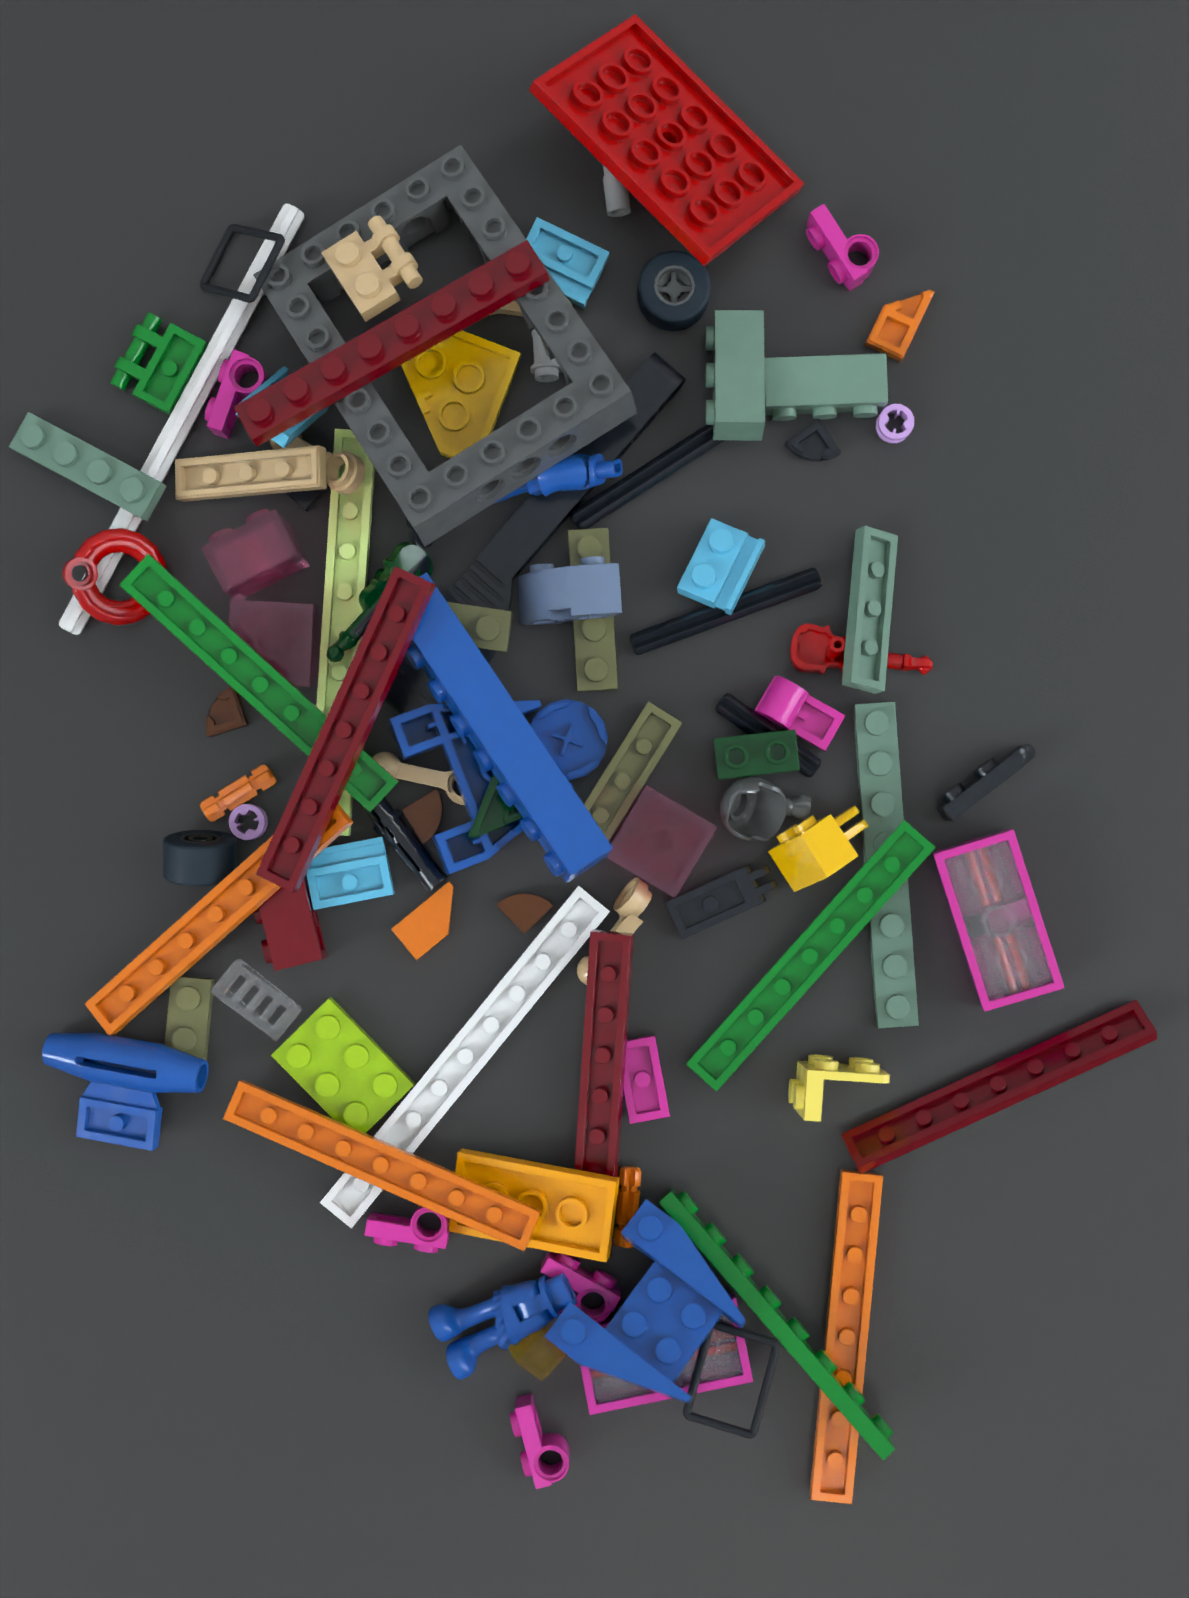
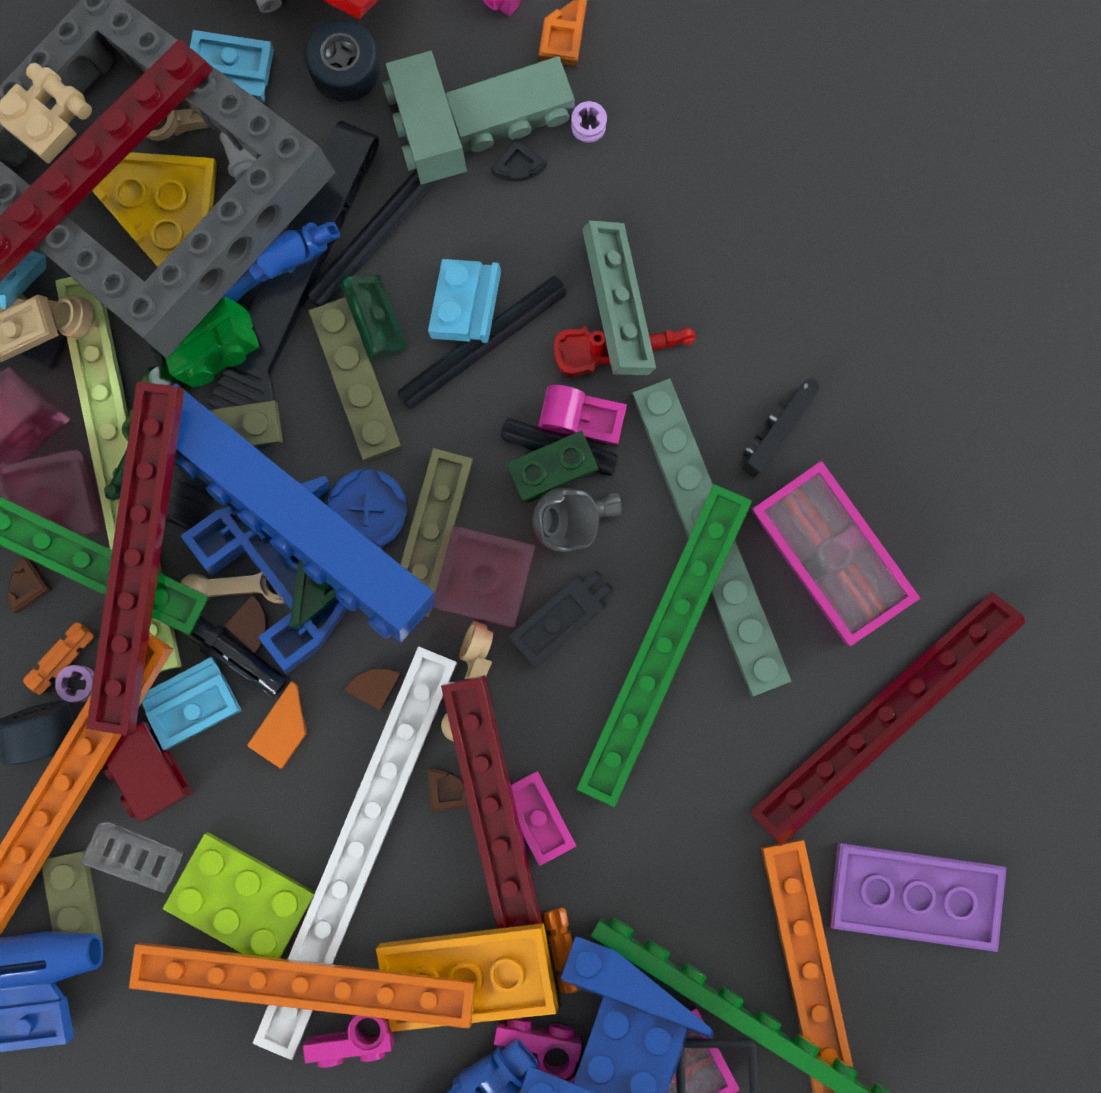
camera: 25 degrees left, 5 degrees down
(474, 542) = (214, 344): none -> green brick
(564, 1027) = (446, 790): none -> reddish brown tile
(569, 592) = (325, 366): sand blue brick -> none
(631, 550) = (373, 315): none -> clear green plate
(807, 1088) = (702, 778): light yellow bracket -> none
(816, 848) = (636, 538): yellow brick -> none
(972, 1259) = (917, 897): none -> medium lavender tile

